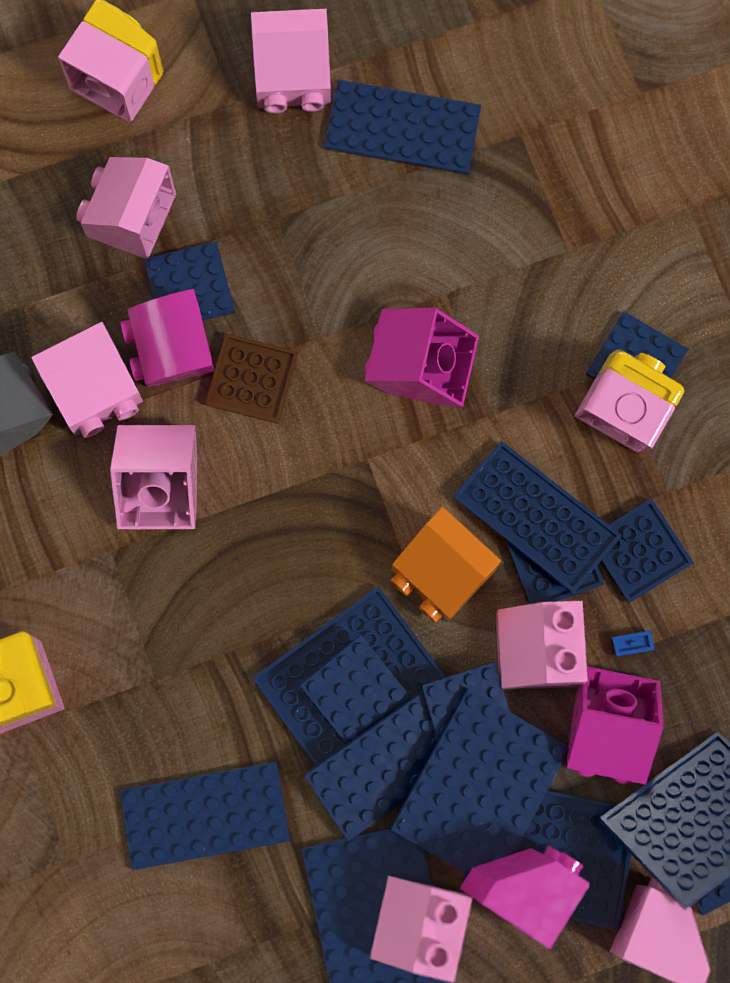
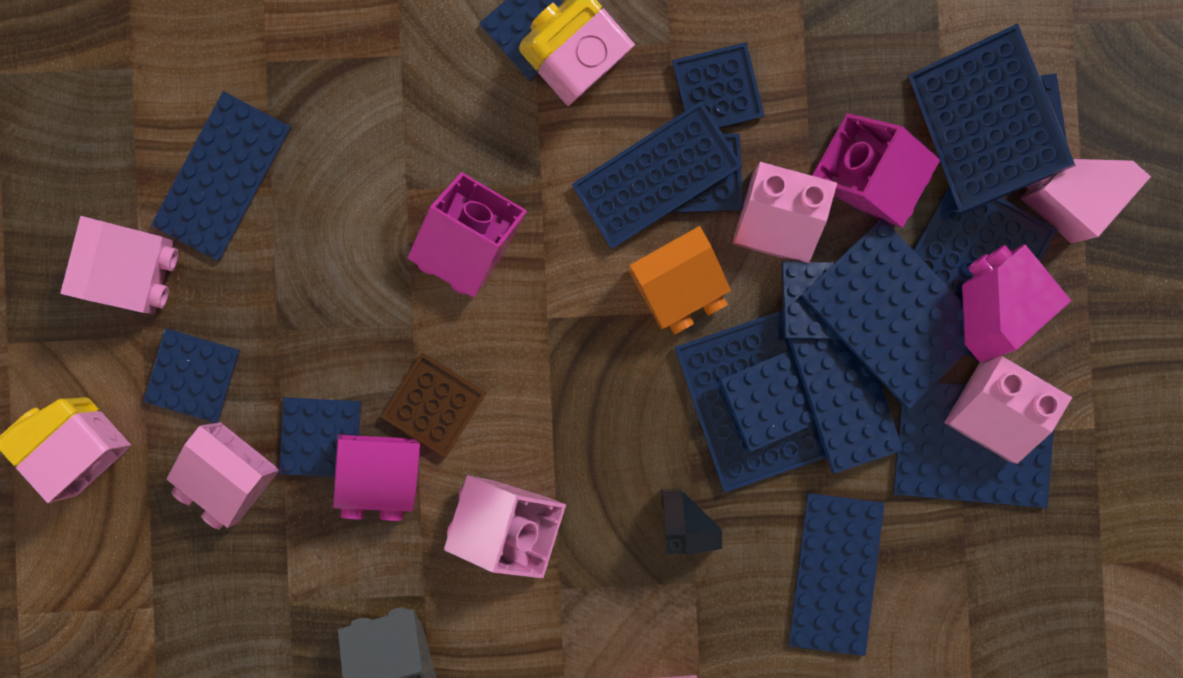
camera: 65 degrees left, 10 degrees up
(88, 381) = (391, 565): bright pink slope -> none
(209, 648) = (687, 525): none -> black panel
(211, 155) = (191, 375): none -> dark blue plate
(633, 643) = (803, 125): blue plate -> none

